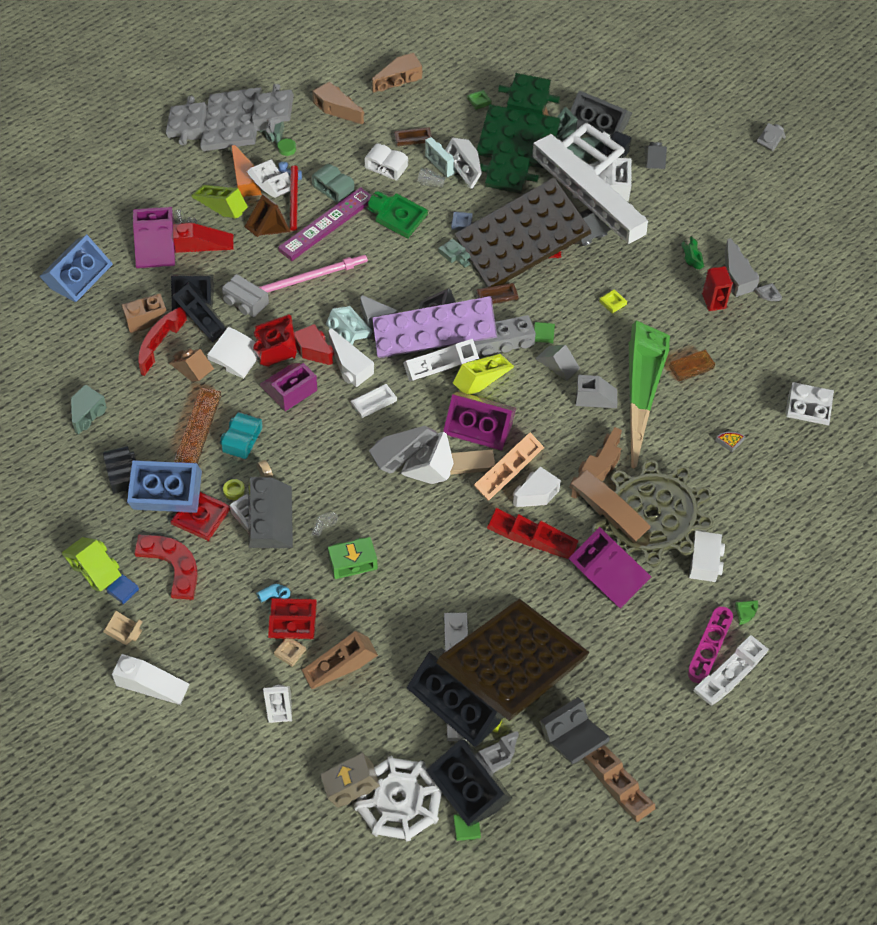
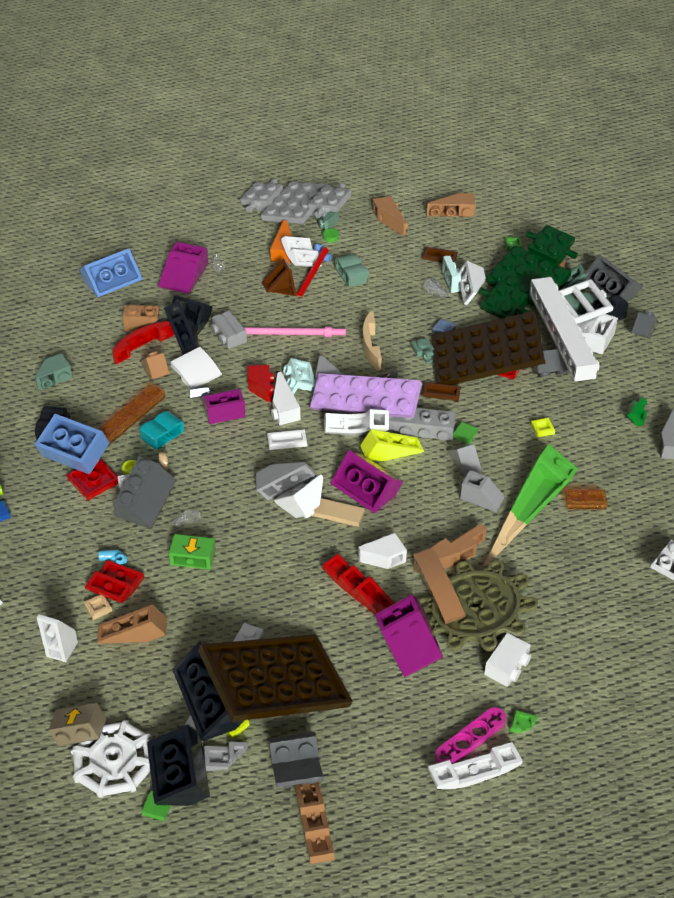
camera: 25 degrees right, 10 degrees down
(175, 554) = (55, 506): red plate -> none
(198, 238) = (217, 278): red slope -> none
(223, 200) = (254, 258): lime slope -> none
(255, 378) = (201, 391): none -> tile
(275, 341) = (230, 368): red slope -> none
(325, 224) = (328, 298): magenta tile -> none
(386, 161) = (405, 266): white brick -> none
(397, 213) = (391, 306): green plate -> none
(410, 275) = (372, 353): none -> tan slope
(508, 466) = (369, 525): light nougat slope -> none
(717, 288) = (642, 442): red brick -> none
(730, 440) = (588, 572): tile -> none

